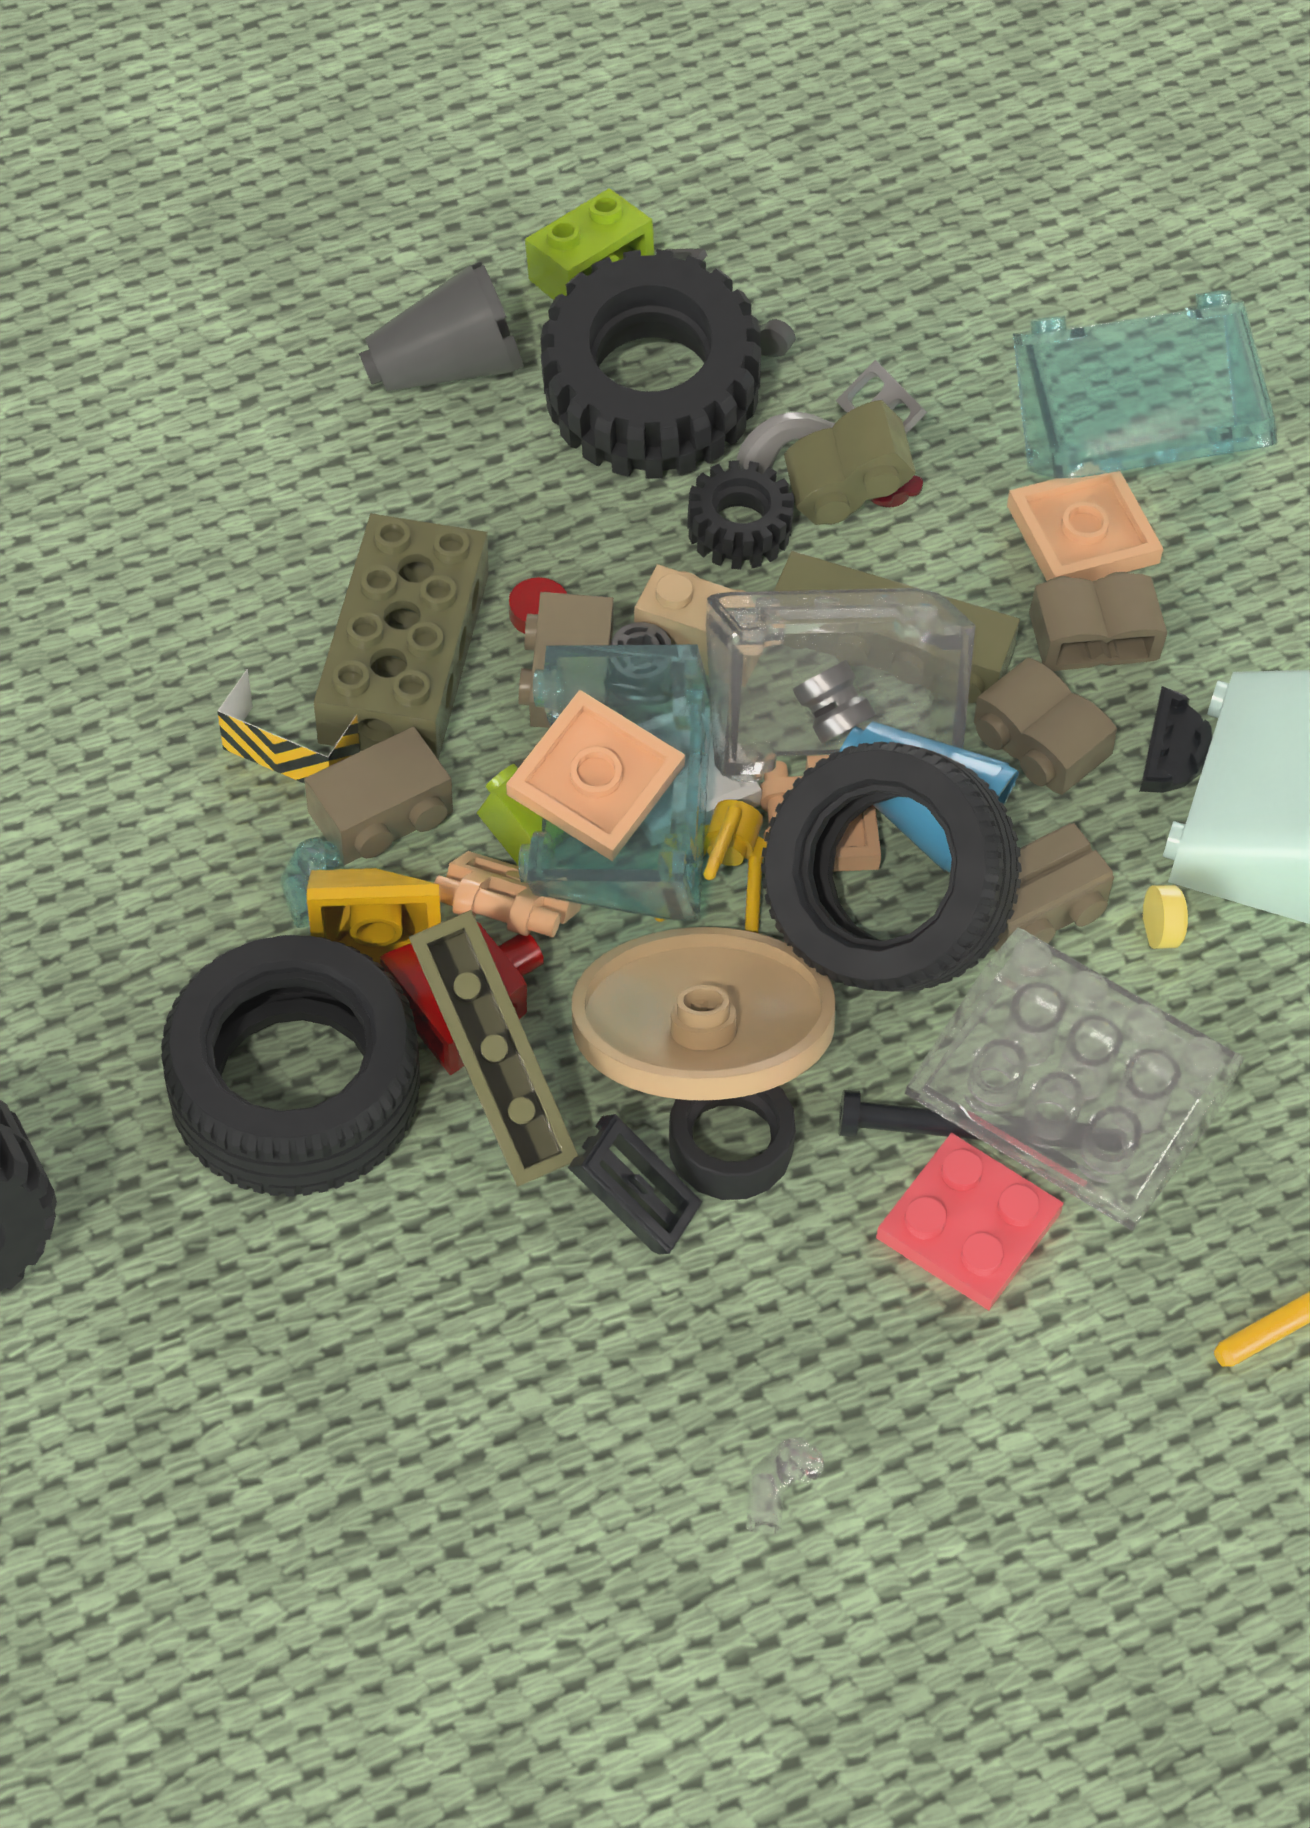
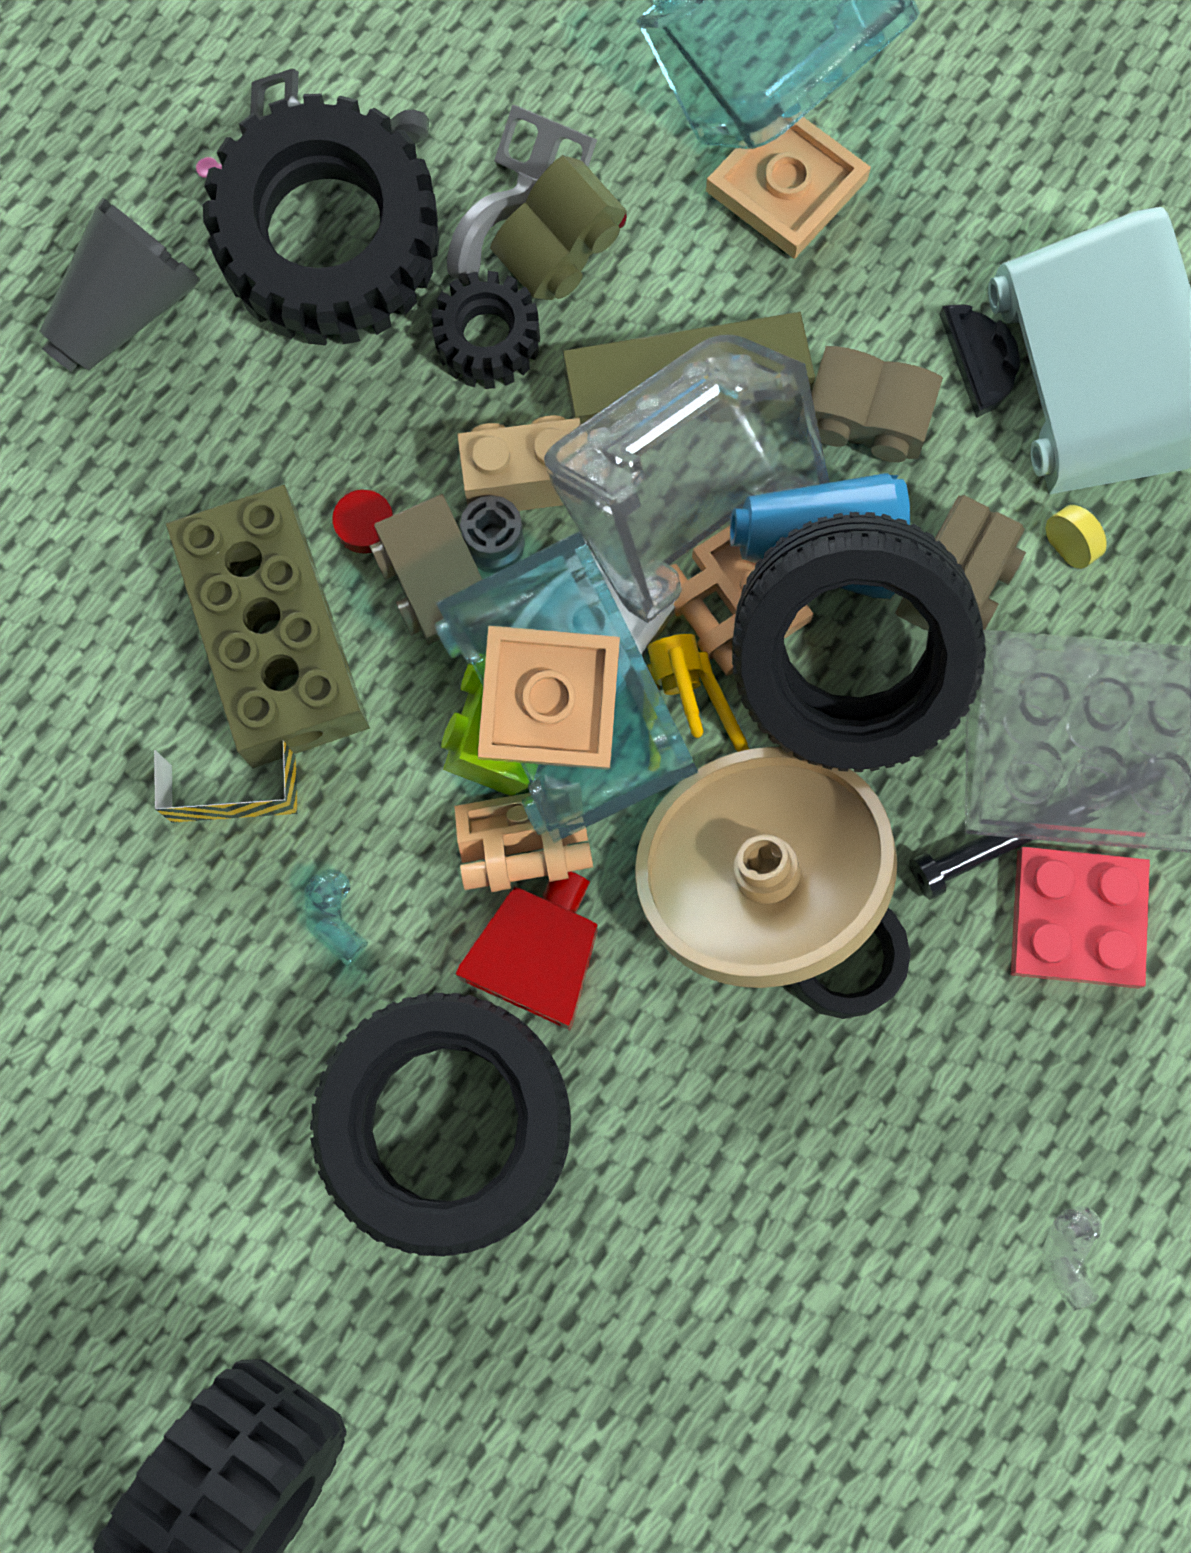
camera: 25 degrees left, 20 degrees up
(370, 908) = (413, 931): yellow slope -> none
(379, 796) = (348, 801): dark tan brick -> none
(494, 1048) = (619, 1021): olive brick -> none
(584, 236) = (184, 119): lime brick -> none
(629, 1193) = (770, 1062): black tile -> none
(829, 687) = (700, 493): flat silver wheel -> none
(1097, 621) = (855, 270): dark tan brick -> none

